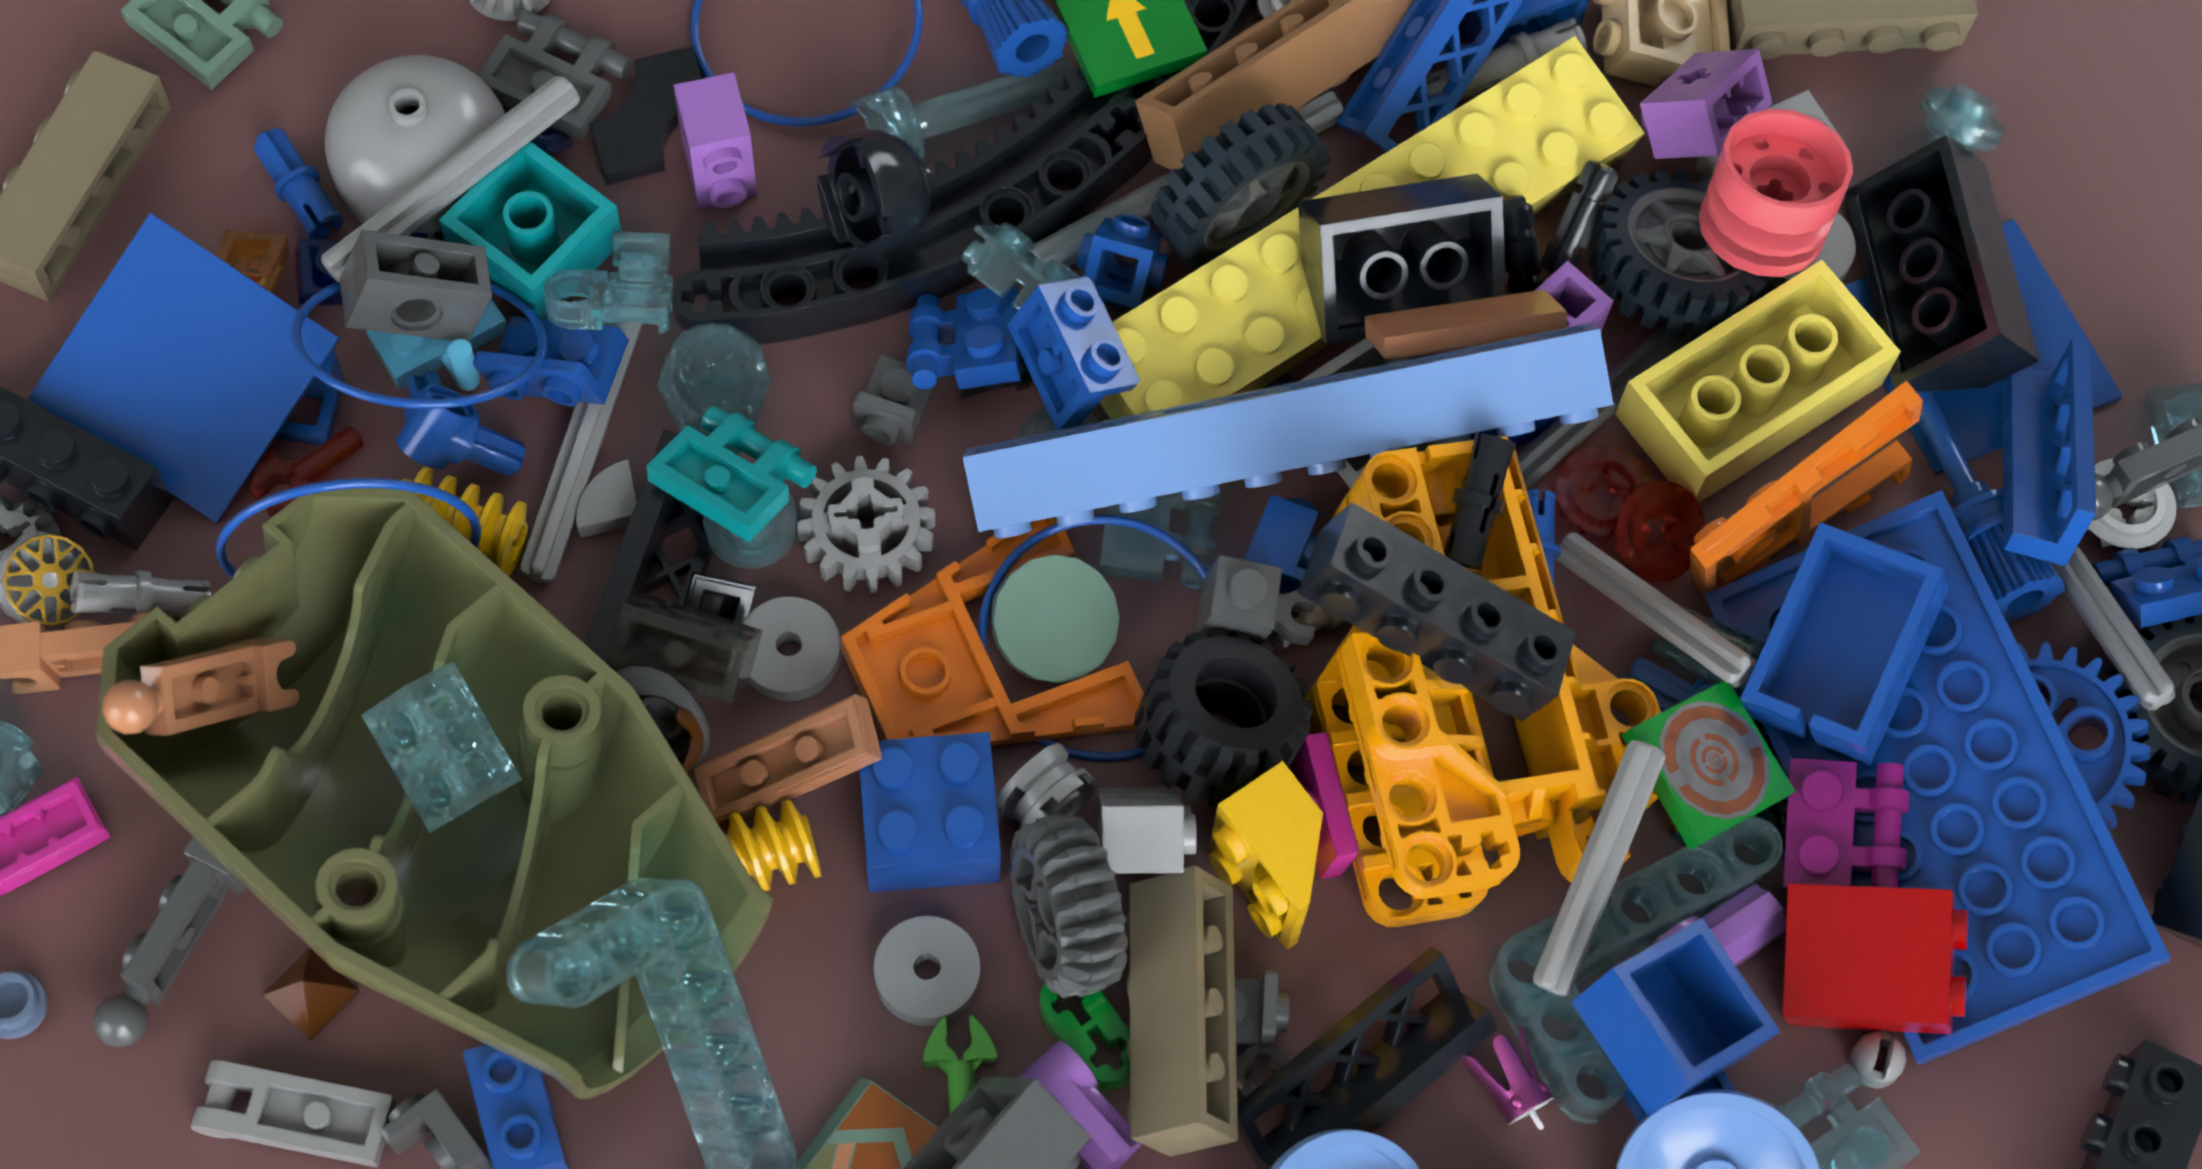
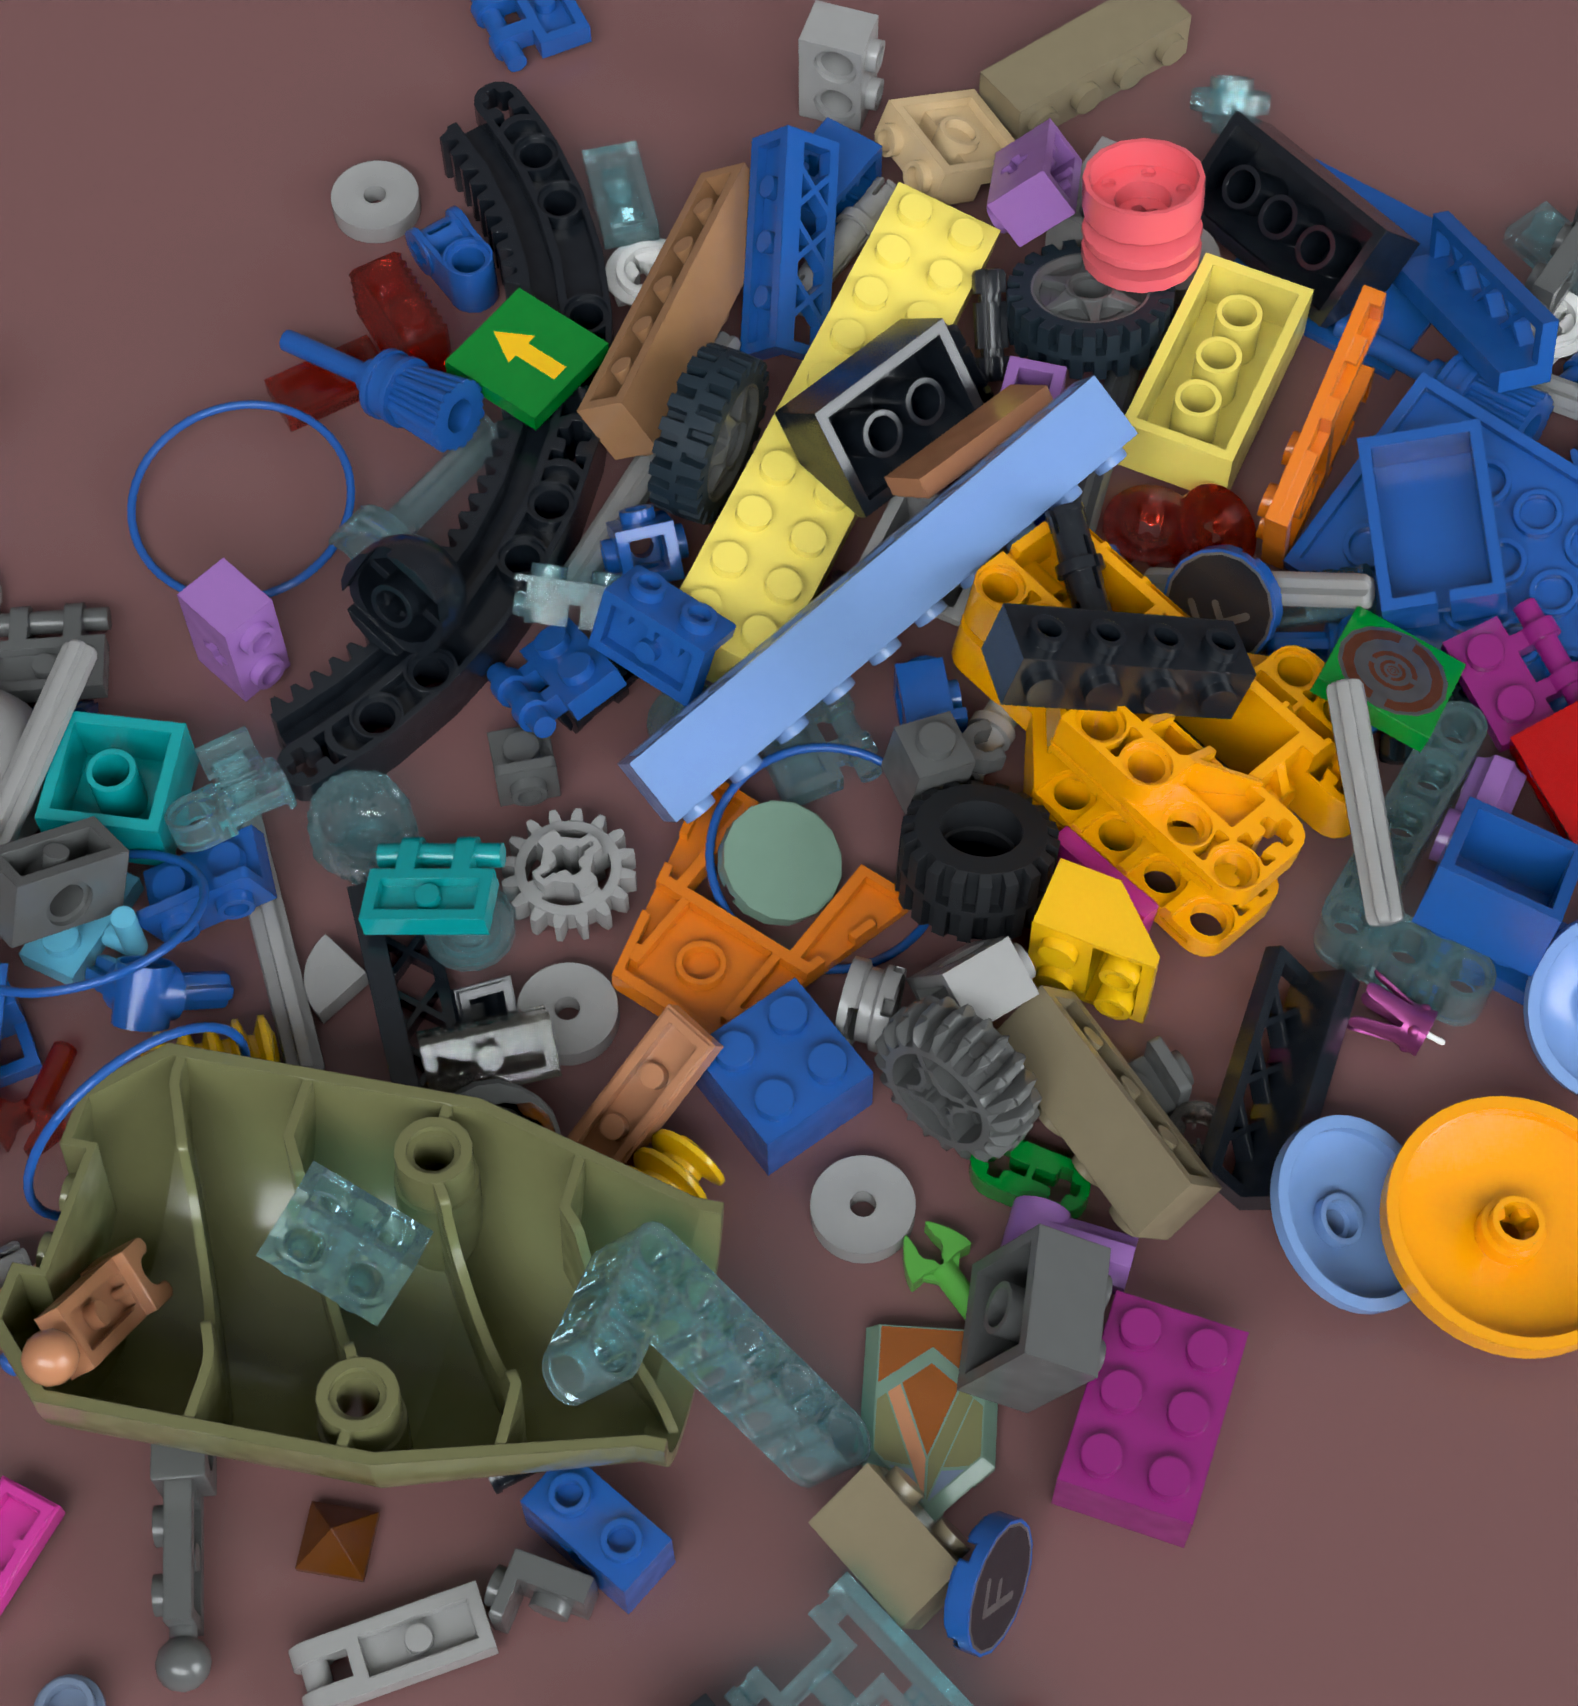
camera: 25 degrees left, 5 degrees down
(635, 135) = (151, 670): black tile -> none
(1612, 604) = (1229, 586): none -> black tile

